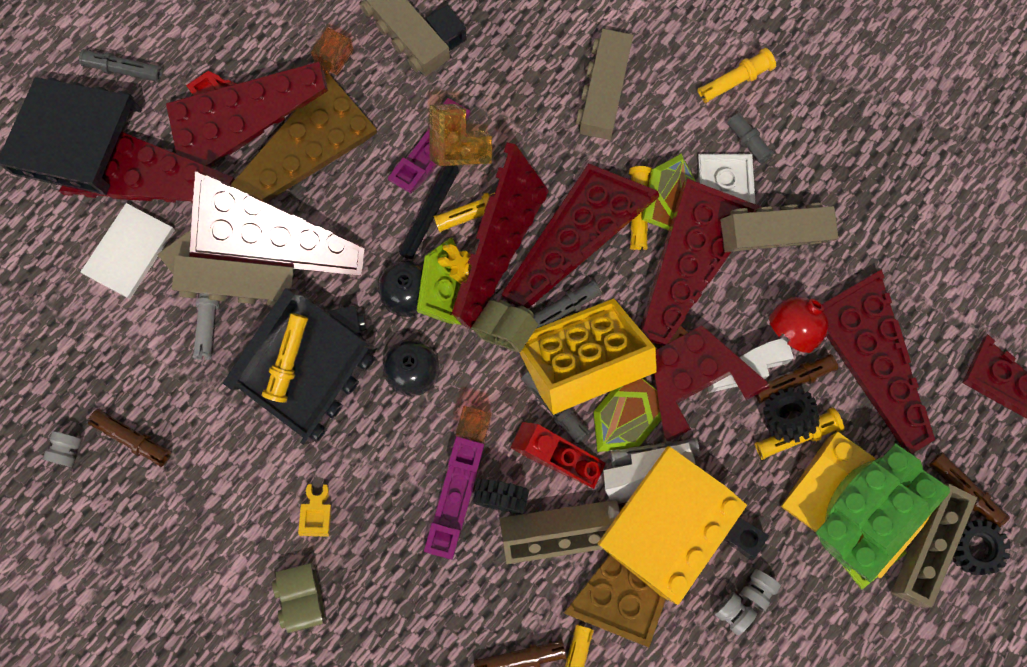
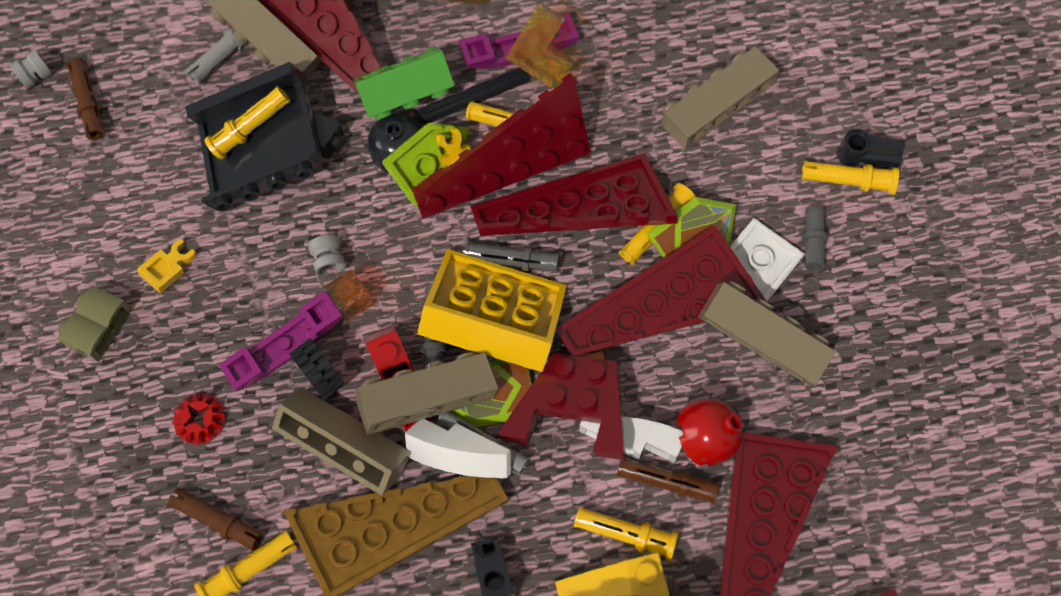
camera: 45 degrees right, 5 degrees down
(380, 238) = (404, 83): none -> bright green wedge
(413, 379) = (344, 210): black cylinder -> none
(429, 409) = (326, 252): none -> light grey wheel
(448, 613) = (213, 419): none -> red gear
(505, 325) = (448, 231): olive brick -> none
(596, 451) = (425, 392): none -> dark tan brick
(672, 525) = (430, 507): yellow slope -> none
(735, 48) = (870, 149): none -> black piece
(793, 427) = (631, 519): black tyre -> none

